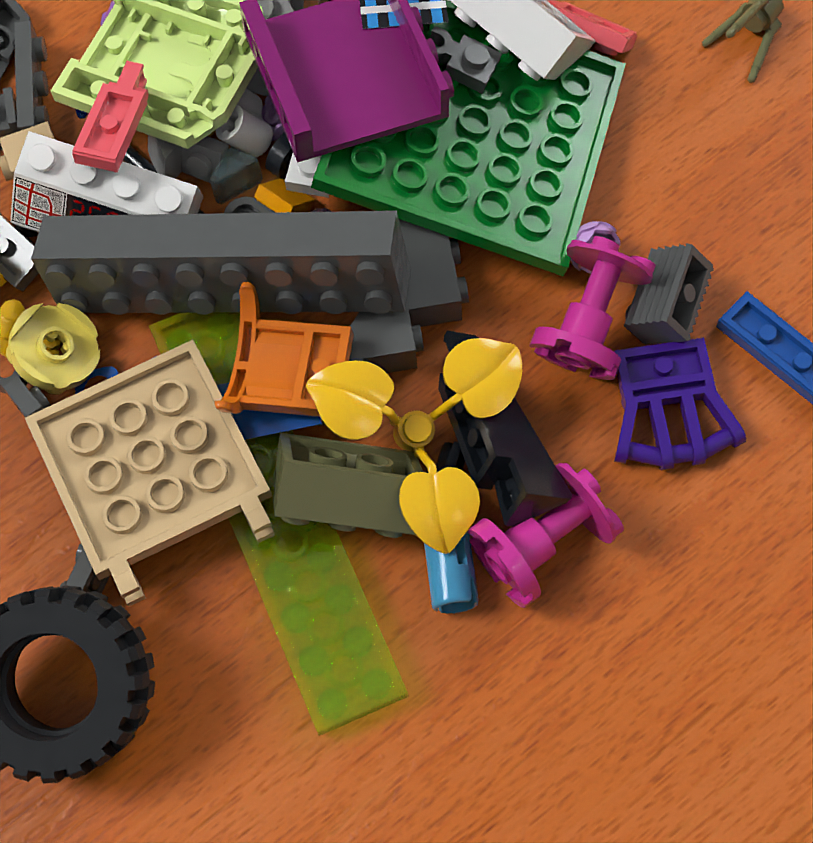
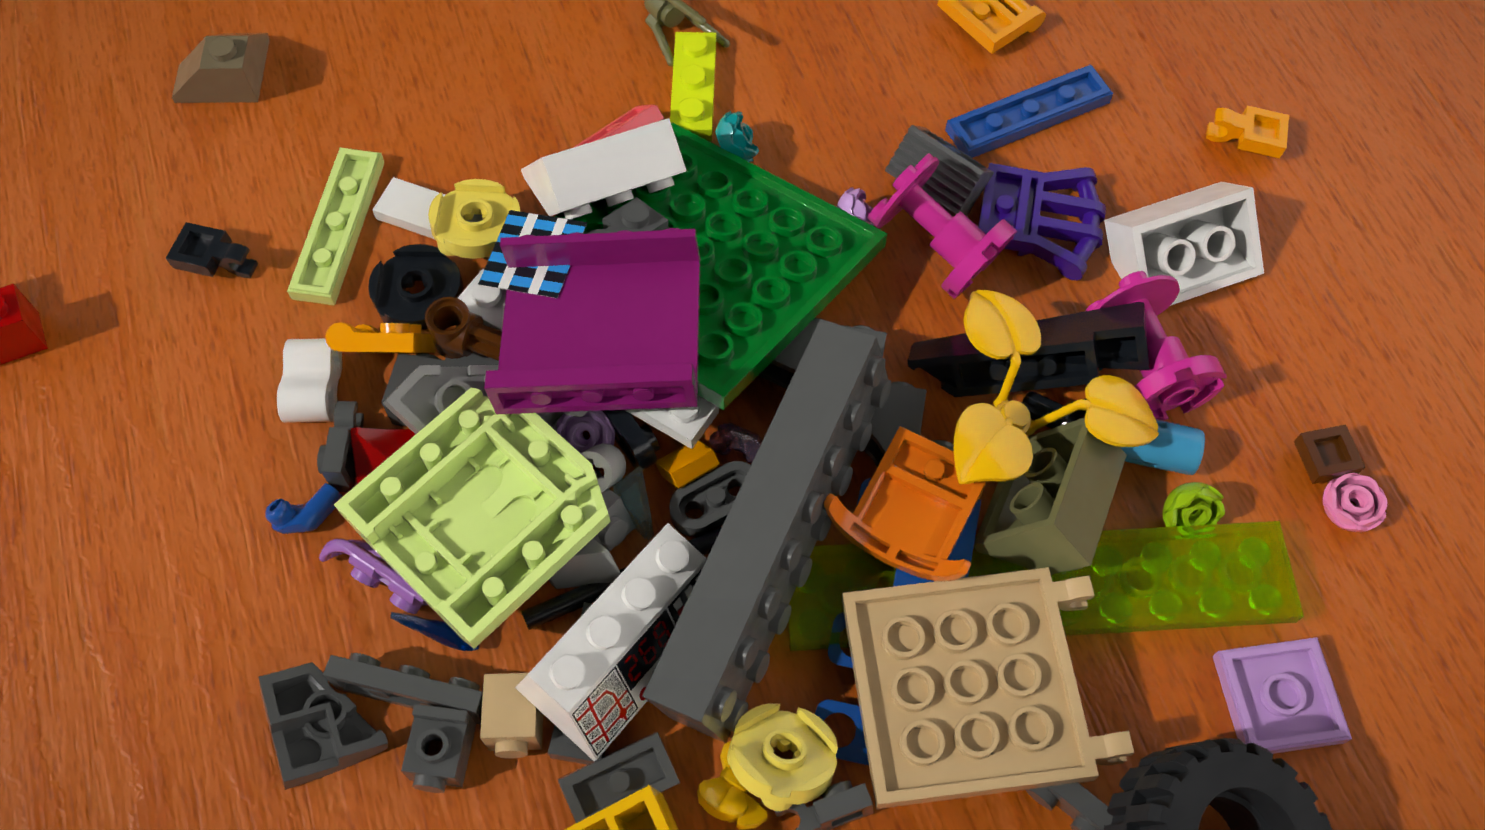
camera: 75 degrees left, 5 degrees down
(113, 120) = (564, 571): coral hinge -> none
(241, 736) = (1282, 696): none -> lavender tile
(394, 613) = (1193, 505): none -> lime plate
(463, 748) = (1364, 492): none -> bright pink plate
(504, 730) = (1328, 453): none -> reddish brown plate
(634, 121) = (736, 136): none -> teal plate
(685, 69) = (694, 82): none -> neon yellow plate
(693, 544) = (1196, 237): none -> white slope

